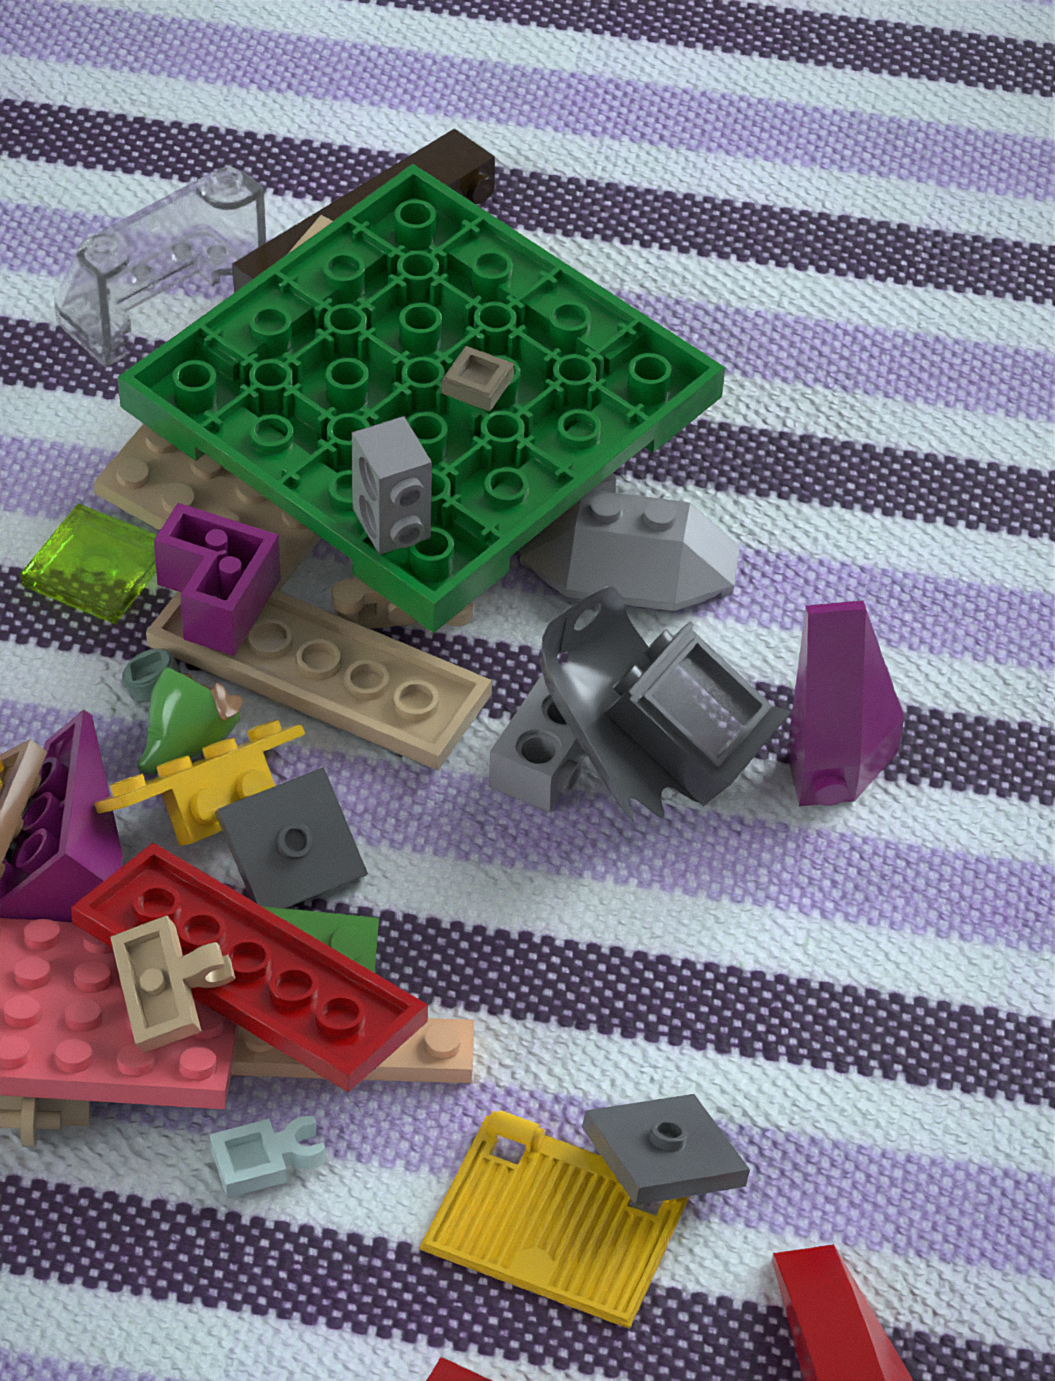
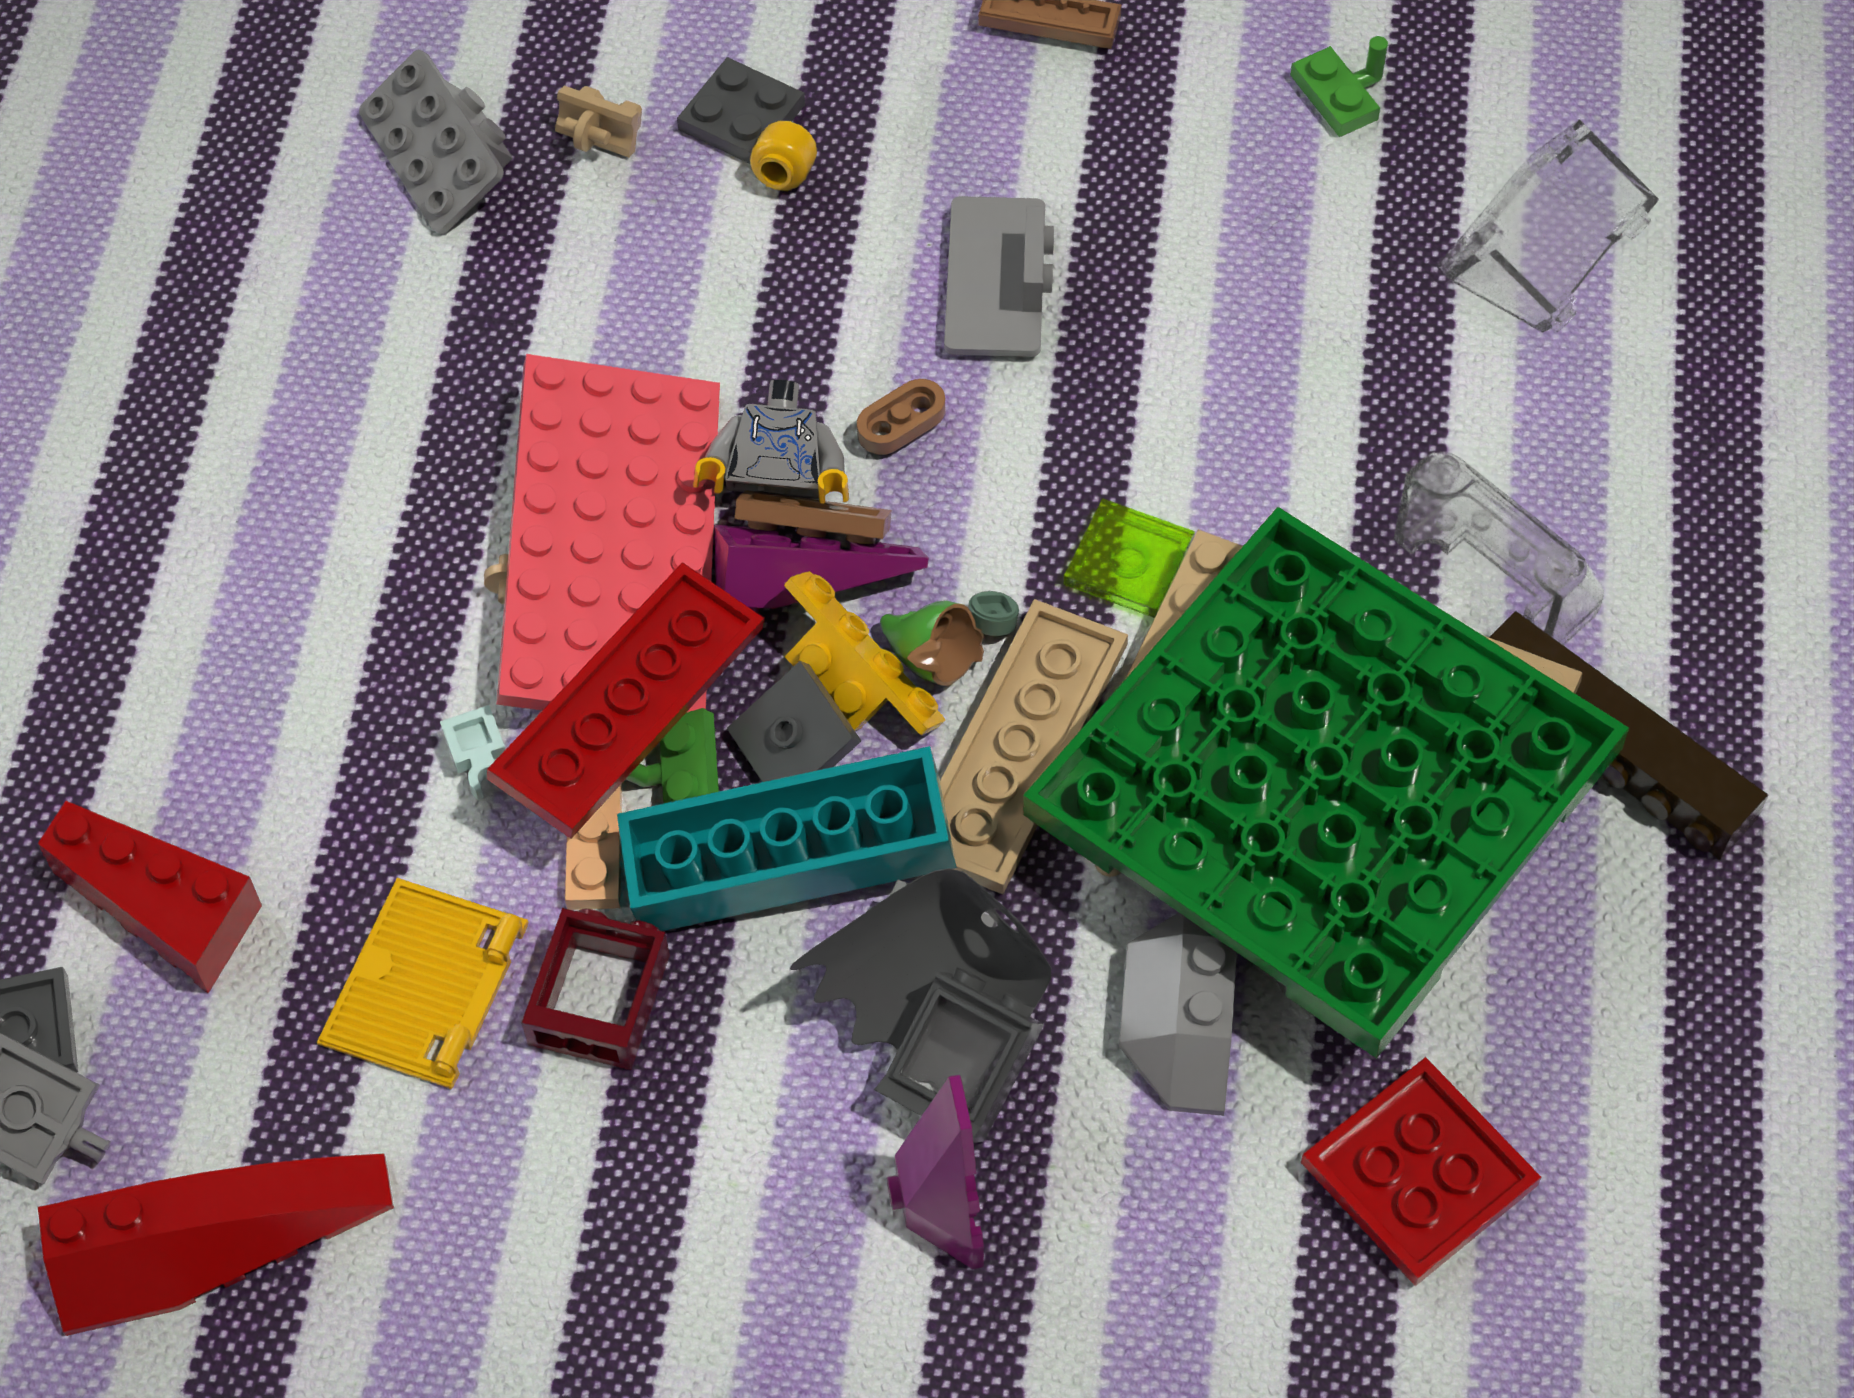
camera: 90 degrees right, 10 degrees up
(160, 981) = (584, 625): tan plate -> none
(220, 570) = (1074, 641): magenta brick -> none
(391, 485) = (1120, 724): light grey brick -> none
(440, 840) = (786, 840): none -> teal brick
(477, 378) = (1316, 806): dark tan tile -> none
(595, 994) = (587, 1036): none -> dark red window
(665, 1149) = (471, 1051): dark grey plate -> none
(809, 412) = (1420, 1170): none -> red plate

